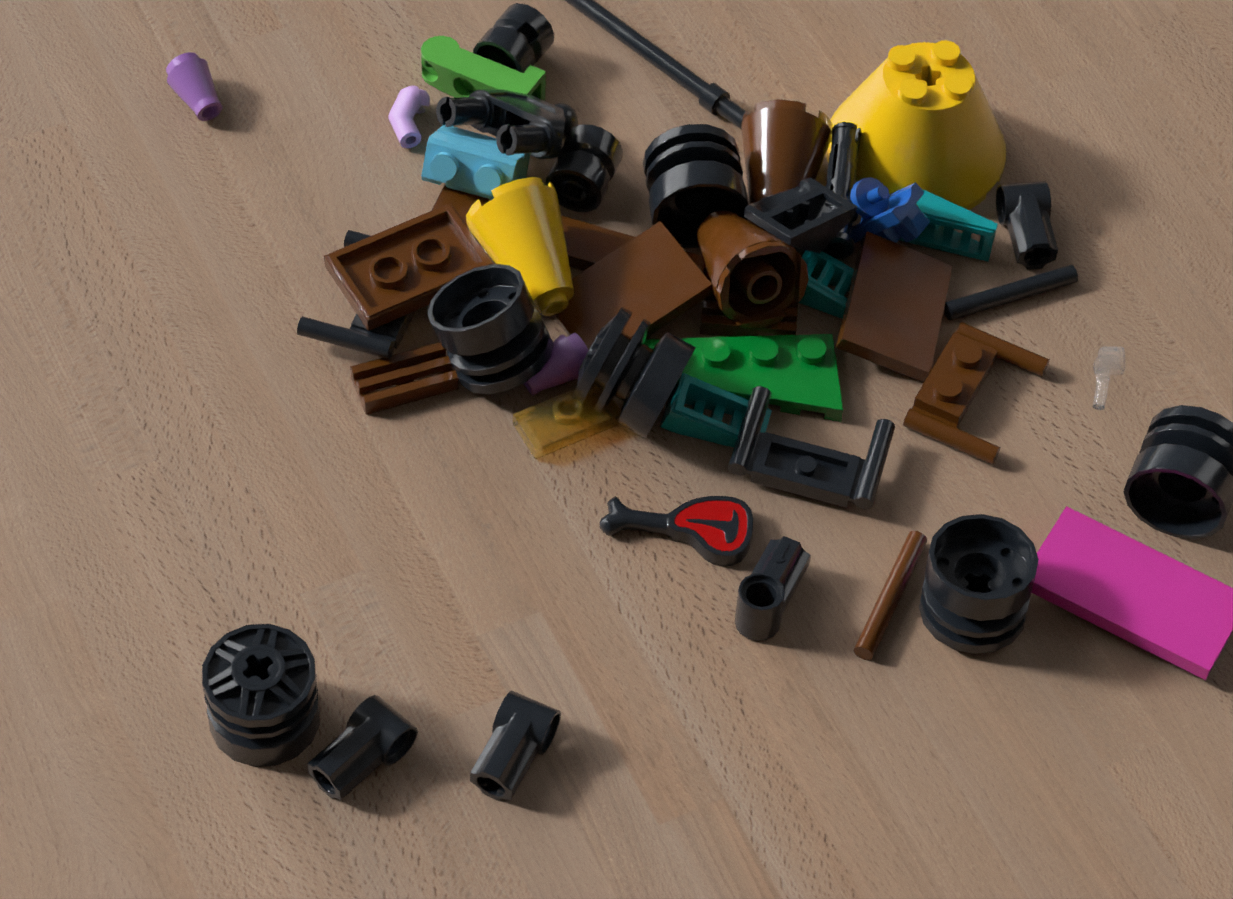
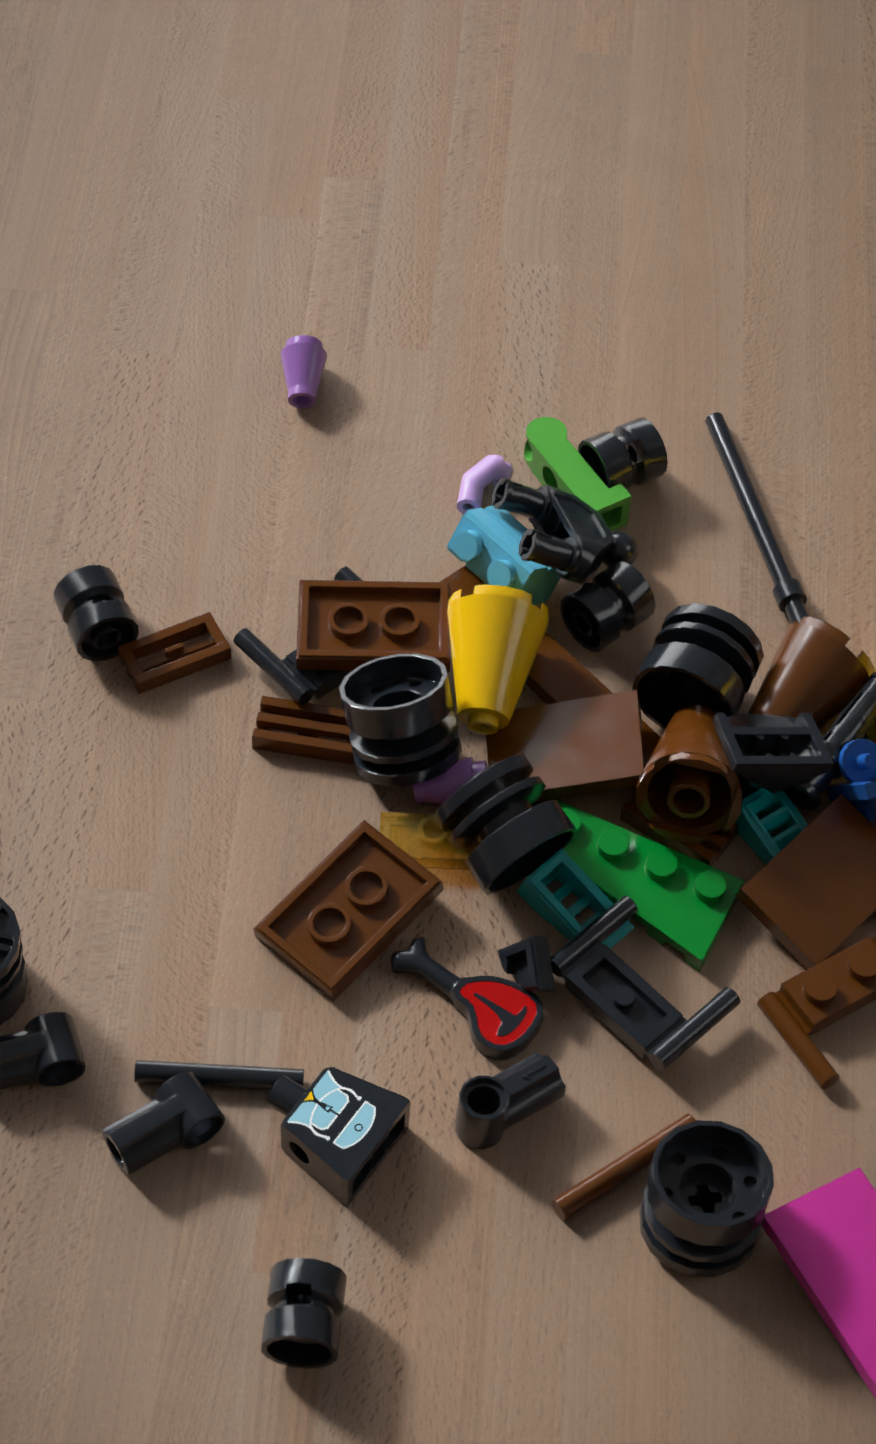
camera: 30 degrees right, 0 degrees up
(163, 361) = (95, 612): none -> black wheel
(210, 381) = (178, 658): none -> reddish brown tile
(528, 684) = (216, 1075): none -> black bar
(541, 503) = (348, 910): none -> reddish brown tile
(656, 676) = (339, 1128): none -> black torso
(715, 476) = (529, 963): none -> black tile
(735, 833) = (304, 1312): none -> black wheel

